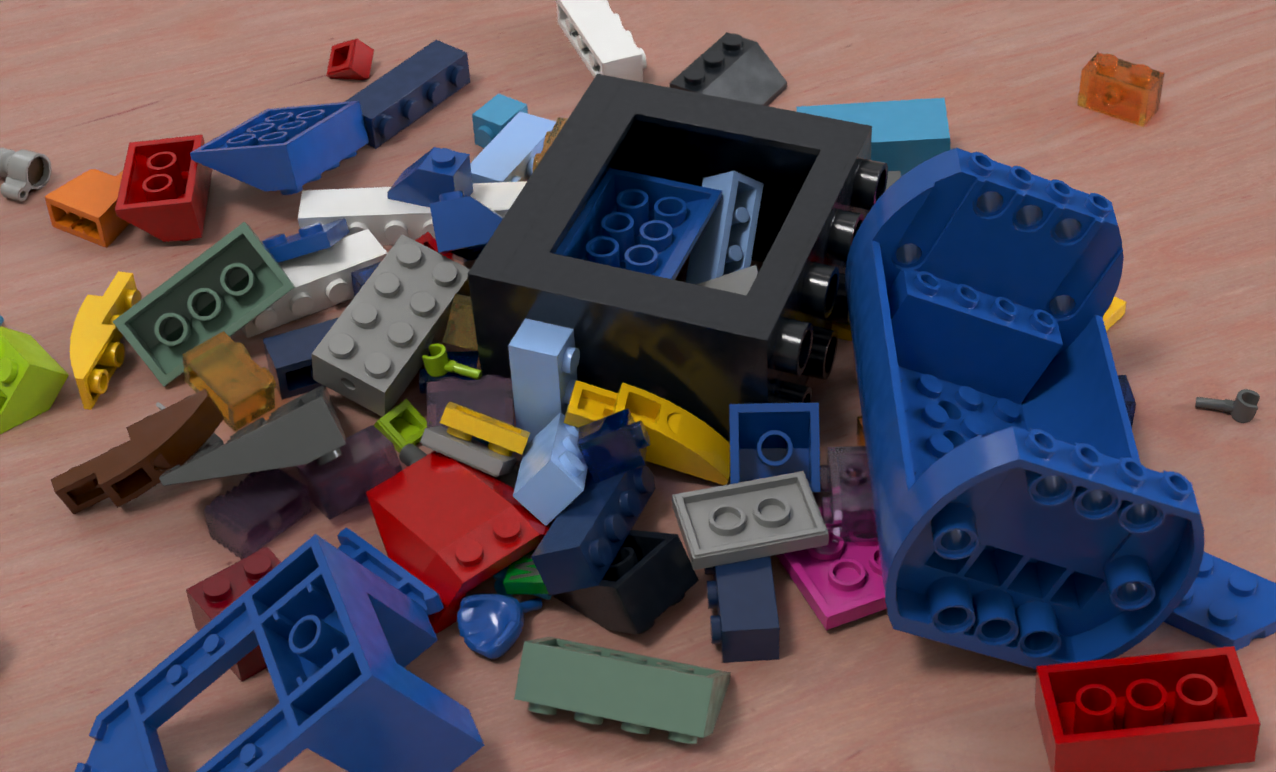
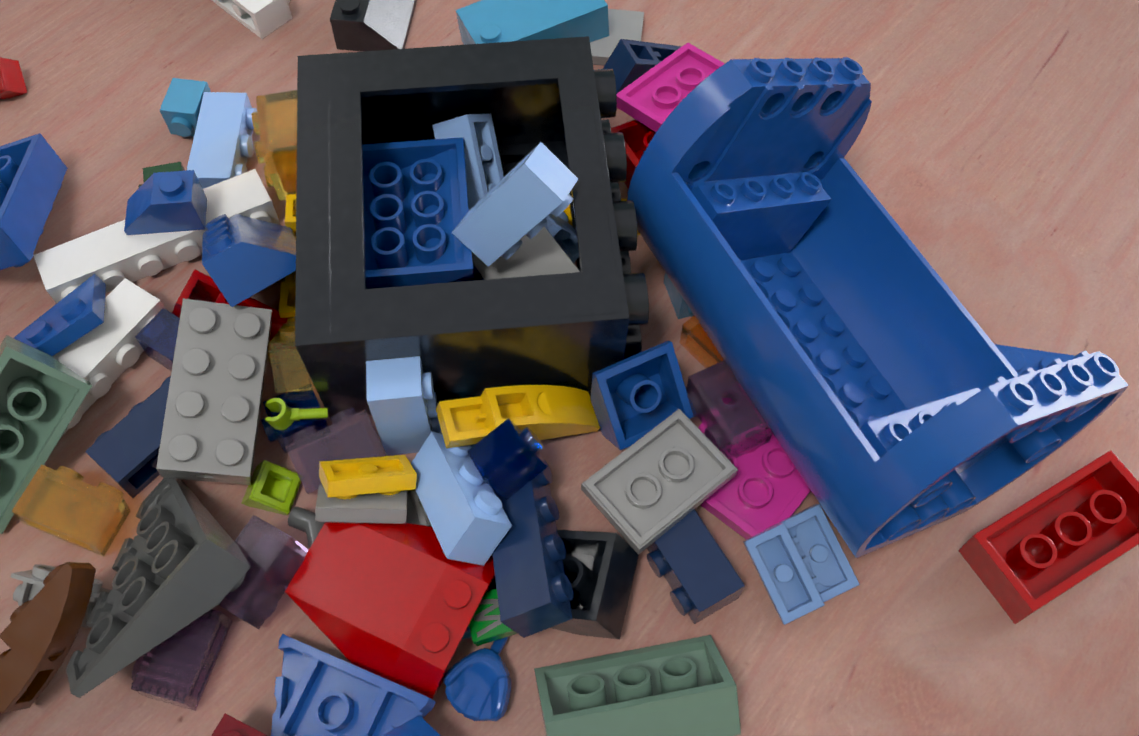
camera: 30 degrees left, 20 degrees up
(411, 90) = (79, 97): dark blue brick -> none
(724, 236) = (517, 206): none -> light blue brick
(850, 643) = (801, 563): none -> medium blue slope
(1241, 409) = (946, 191): dark grey hand -> none

